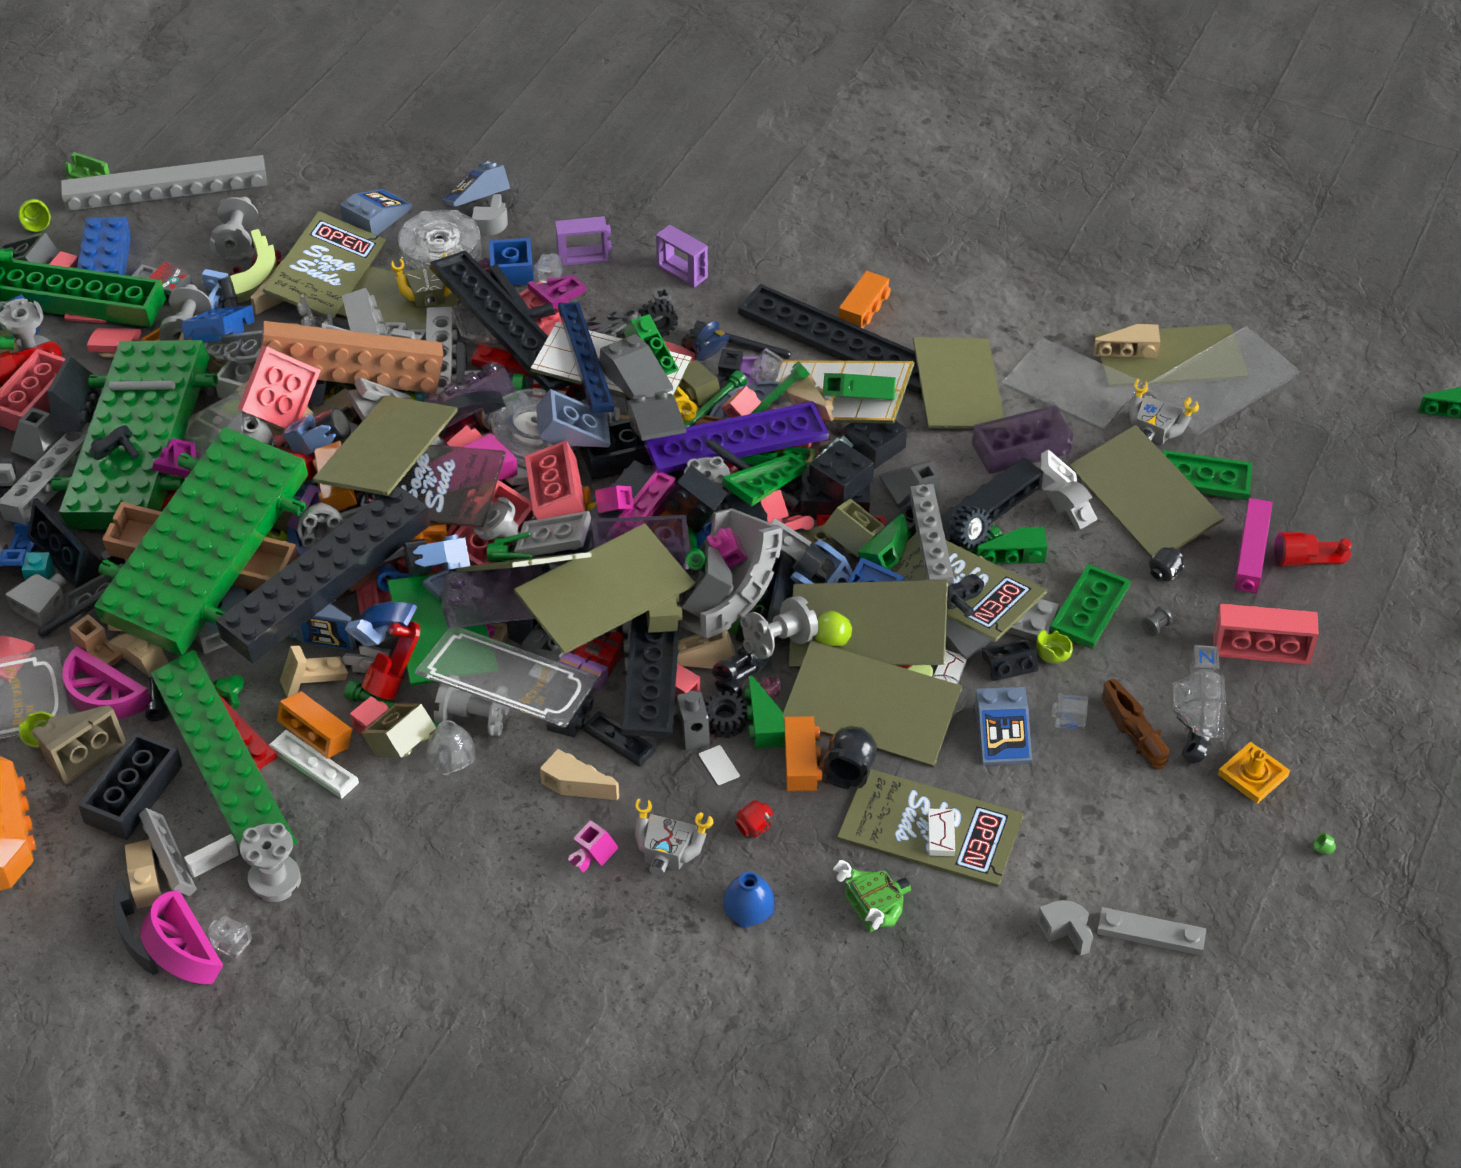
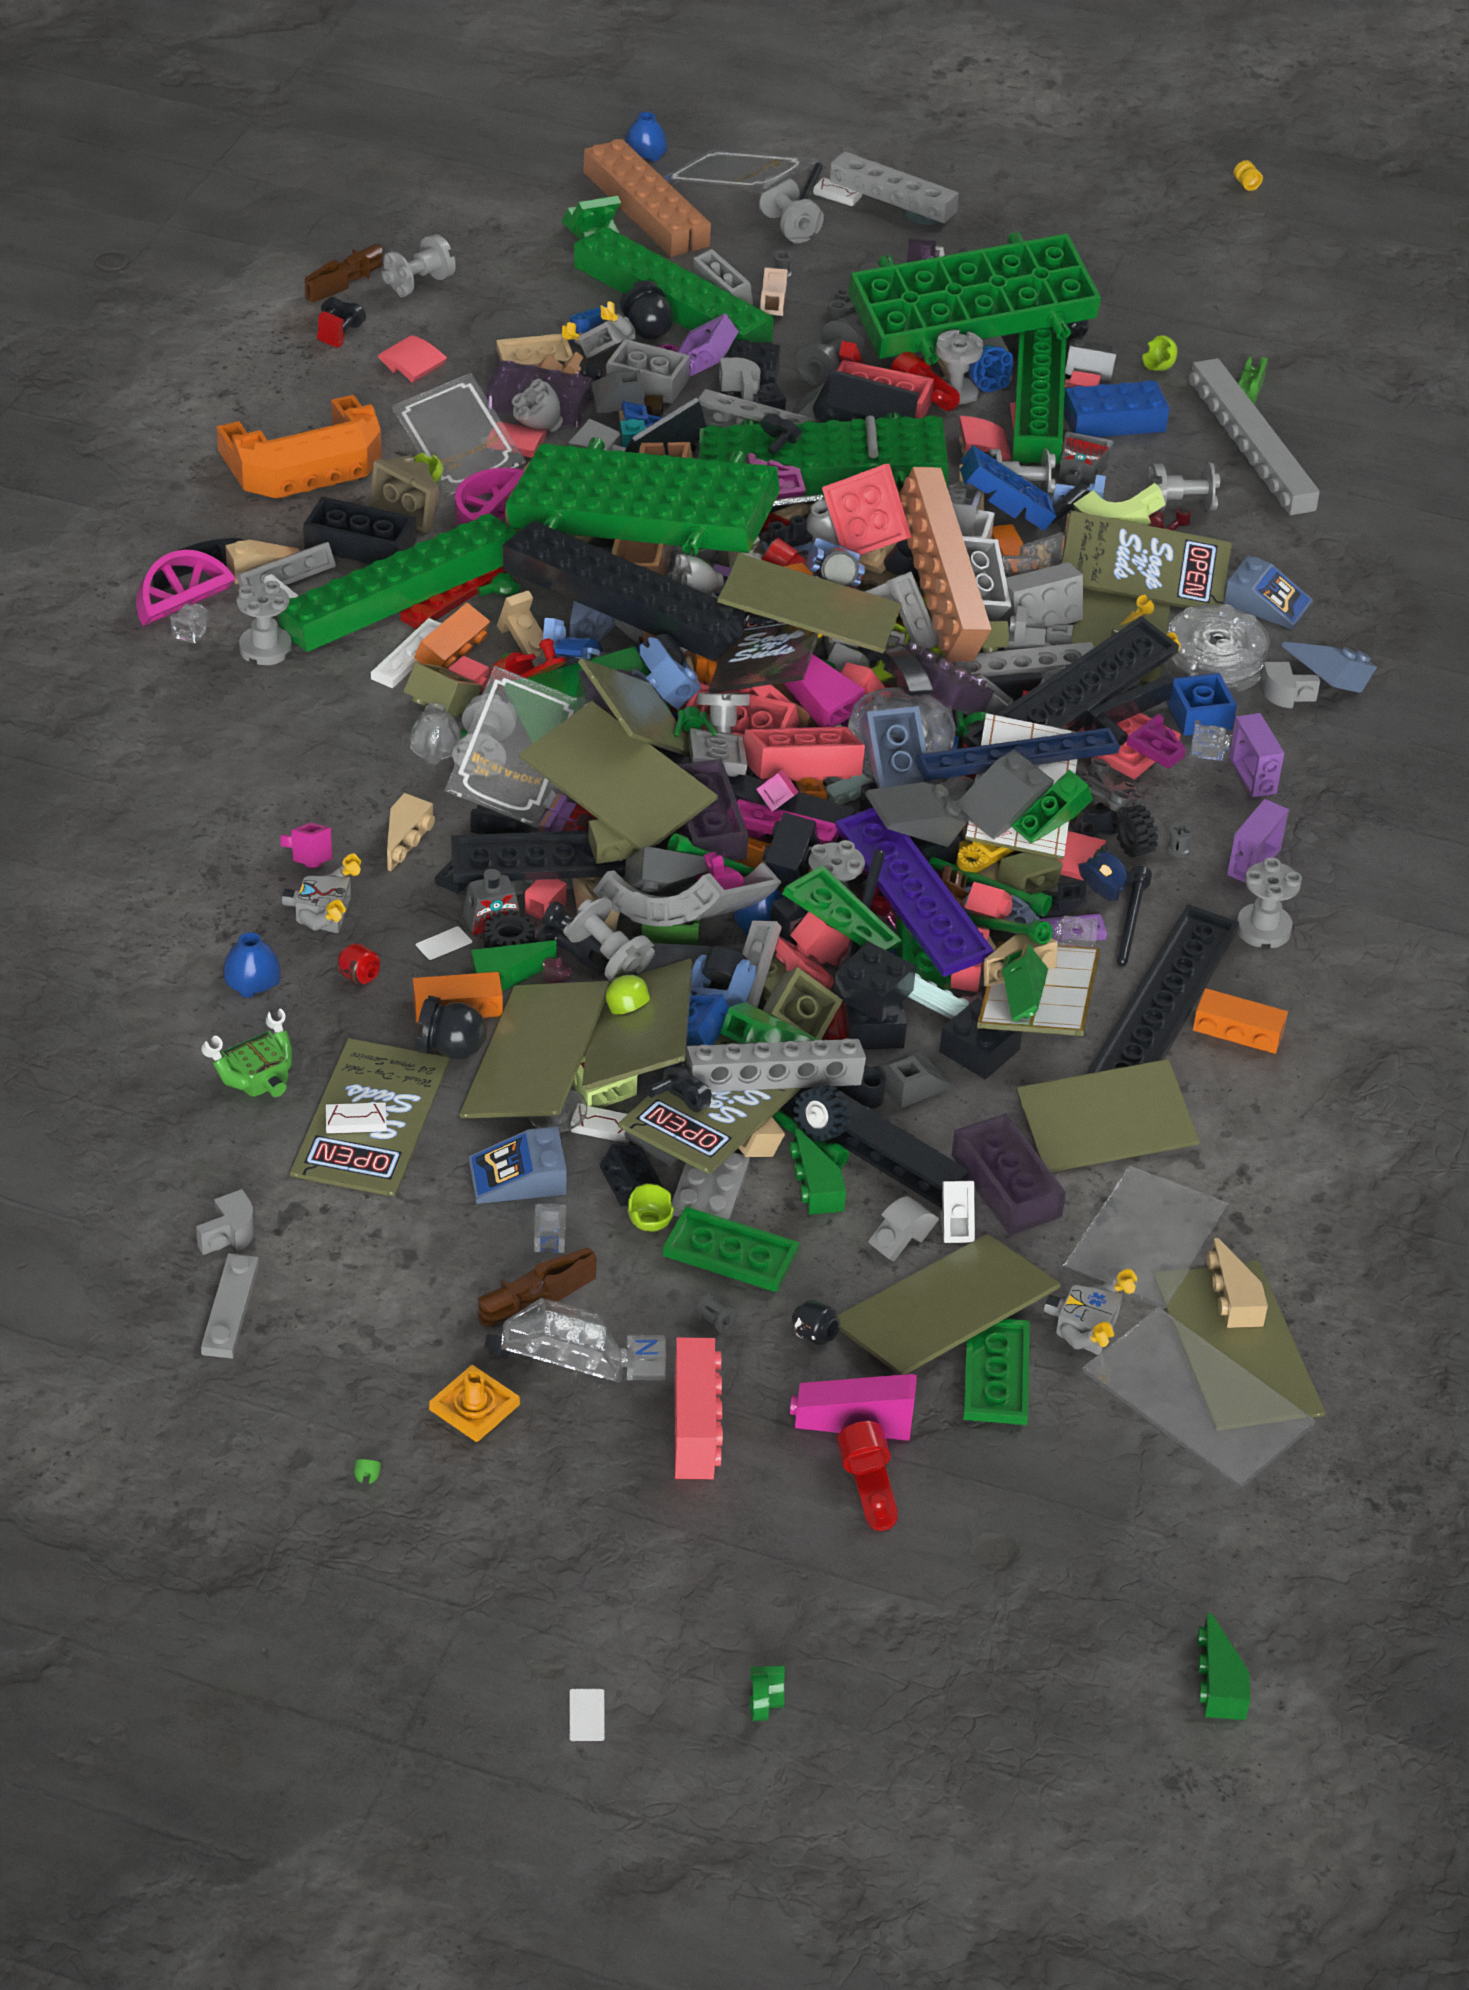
camera: 80 degrees right, 5 degrees down
(756, 269) = (1265, 919): none -> light grey piece

